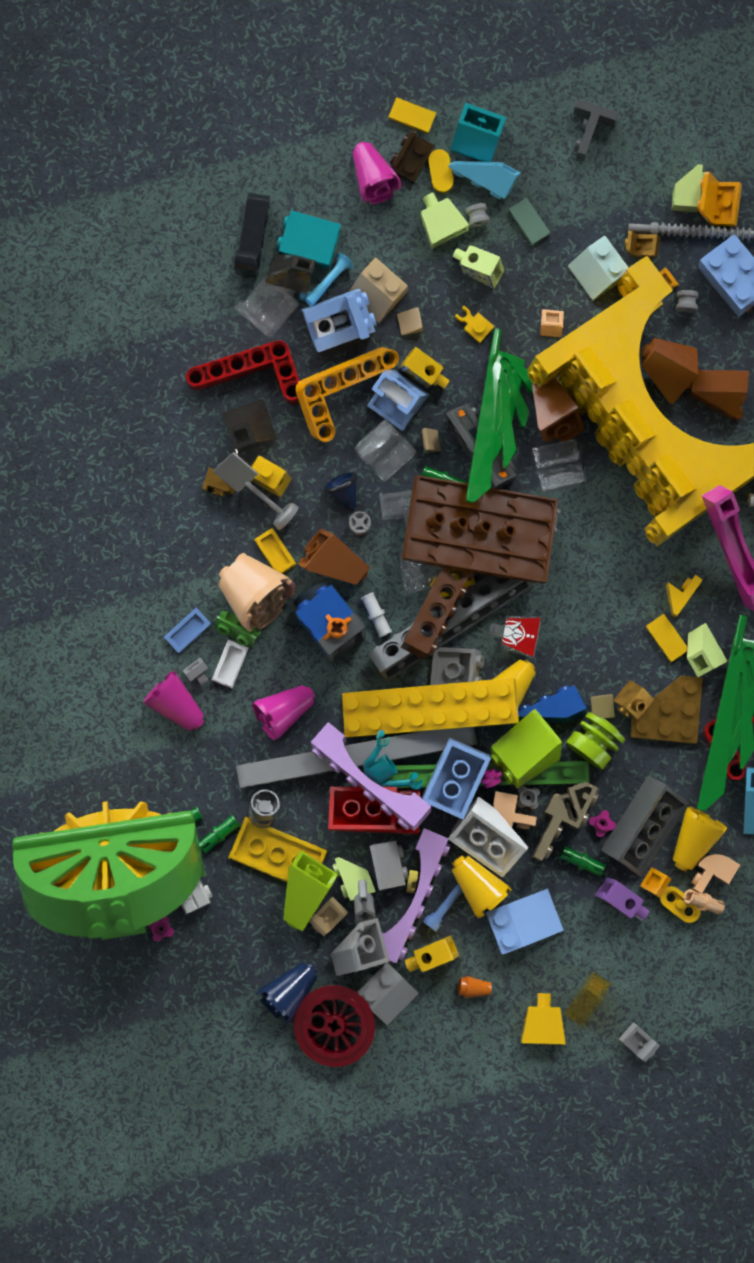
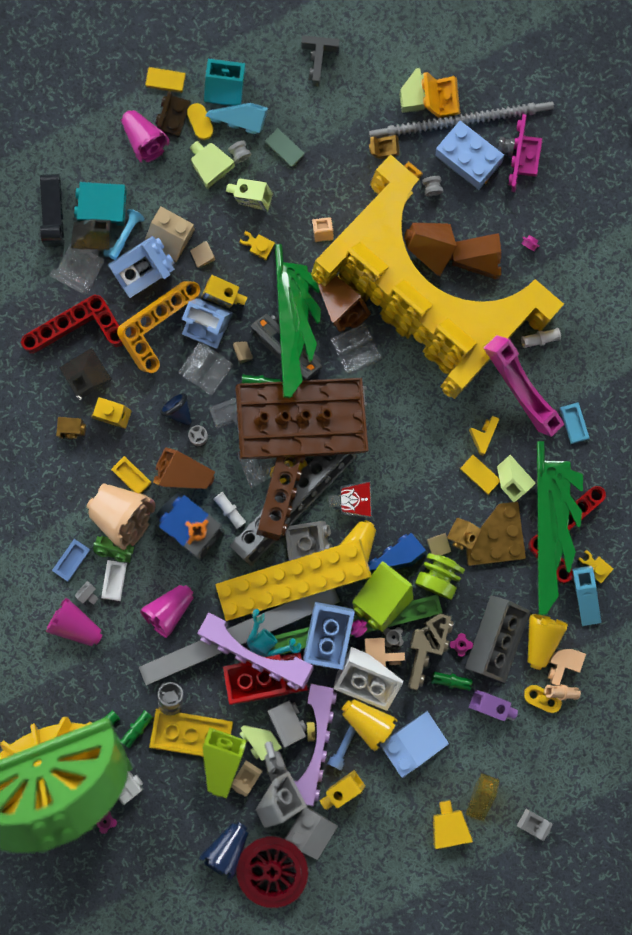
camera: 20 degrees left, 0 degrees up
(239, 474) = (85, 417): light grey piece -> none
(473, 987) = (383, 810): orange cone -> none
(598, 268) = (351, 174): light aqua slope -> none
(655, 882) = (517, 684): light orange tile -> none

